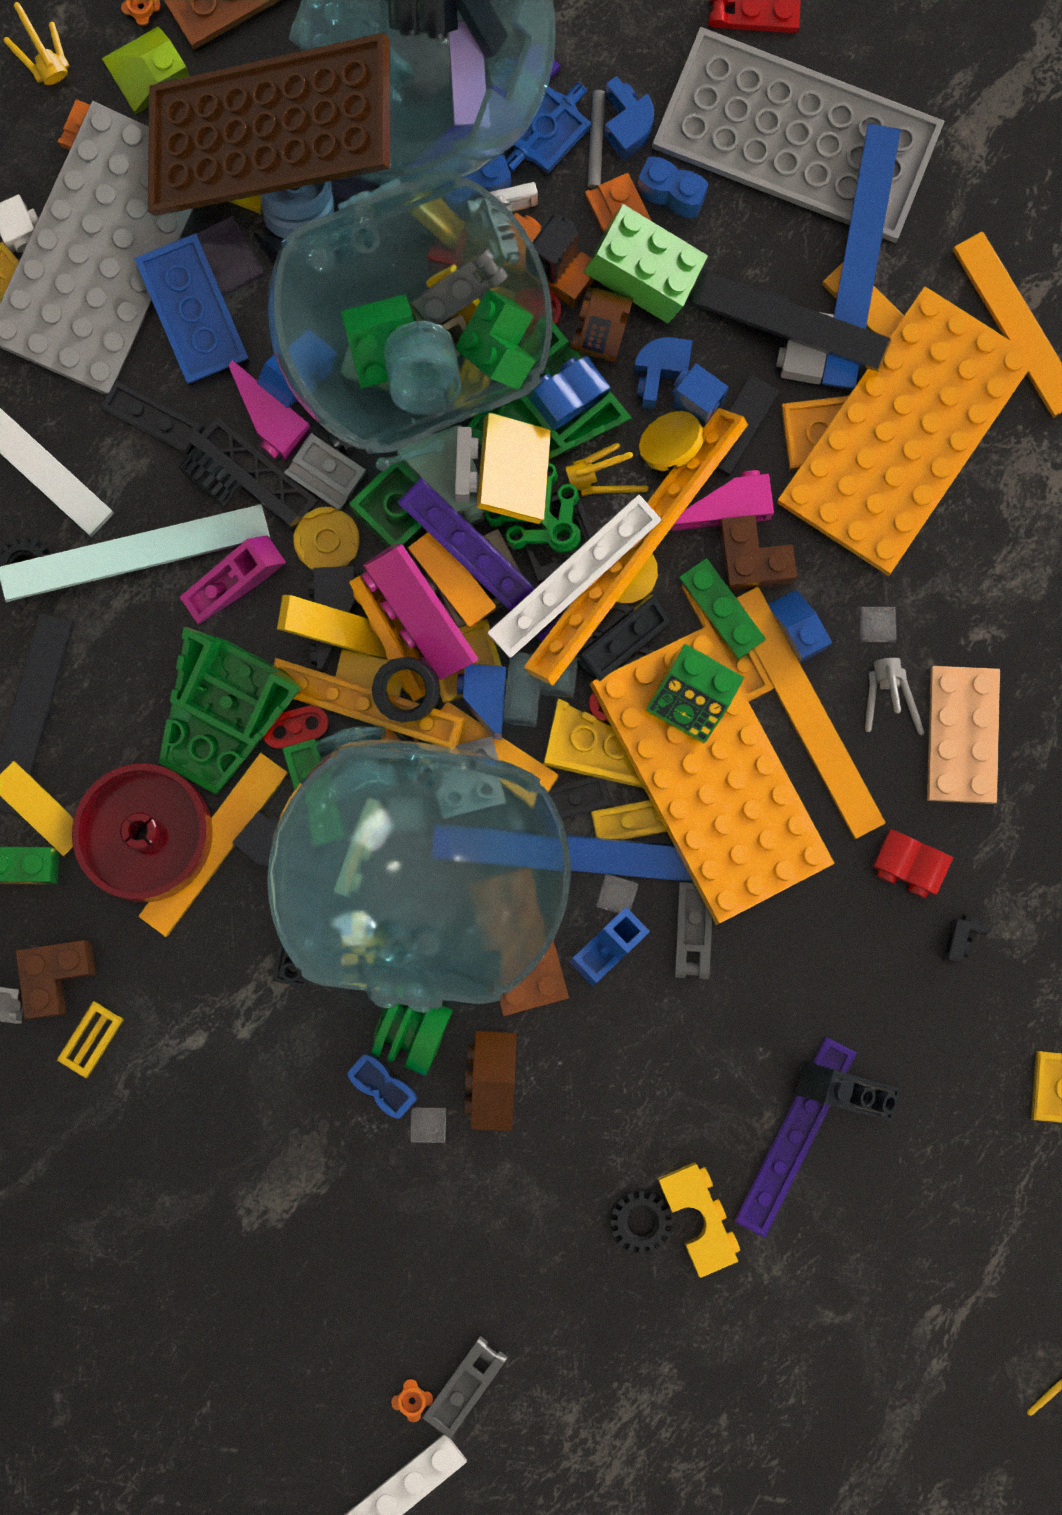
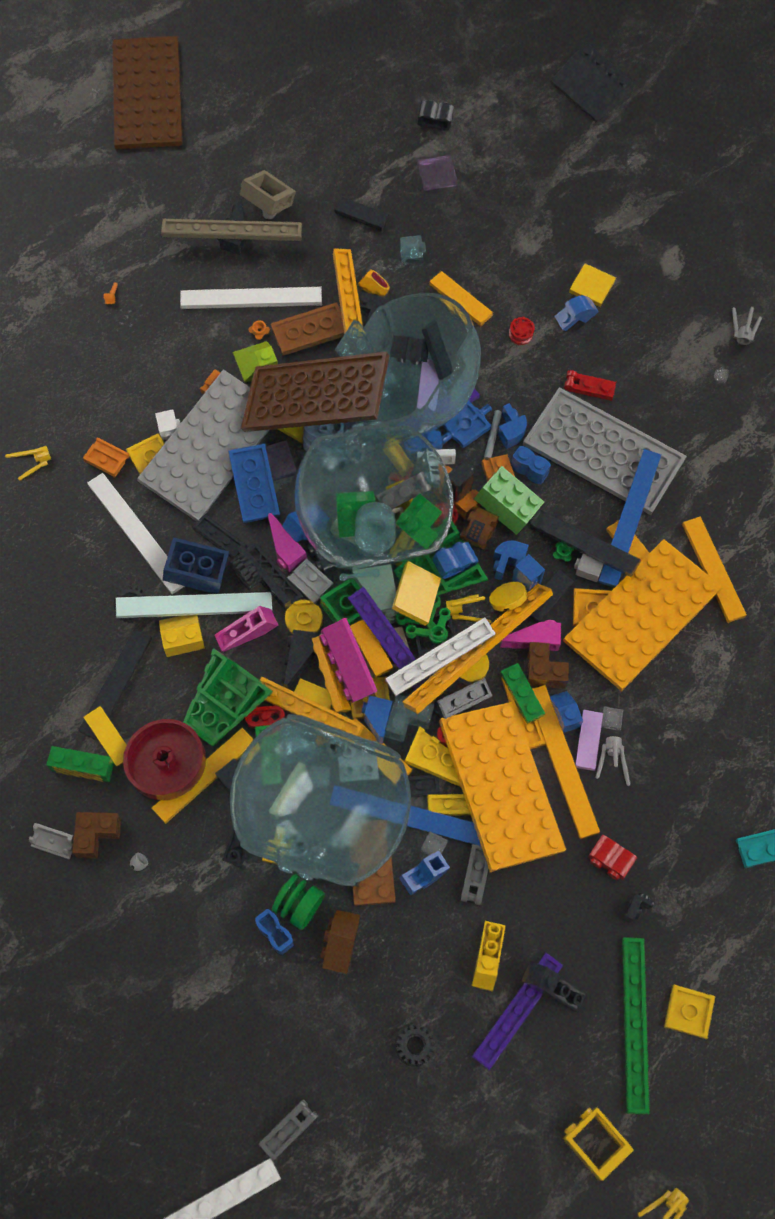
camera: 10 degrees right, 15 degrees down
(49, 66) = (204, 351): yellow plant -> none
(105, 1015) = (113, 880): yellow tile -> none
(121, 482) = (195, 565): none -> dark blue brick
(122, 607) = (181, 635): none -> yellow slope
(137, 1009) = (139, 862): none -> light grey hinge
(329, 626) = (296, 660): yellow tile -> none
(380, 693) = (317, 702): black tyre -> none
(422, 1398) = (260, 1133): orange plate -> none
(428, 1125) = (297, 962): clear plate -> none
(466, 450) = (388, 591): light grey plate -> none
(694, 693) = (498, 734): green slope -> none
(713, 1246) = (448, 1030): yellow arch -> none
(735, 1059) = (489, 956): none -> yellow slope
(746, 345) = (562, 547): none -> green plate
(845, 669) = (589, 740): none -> lavender tile
(963, 734) = (653, 790): light nougat plate -> none
(980, 1340) = (614, 1160): none -> yellow window
(985, 1125) = (635, 1026): none -> green tile

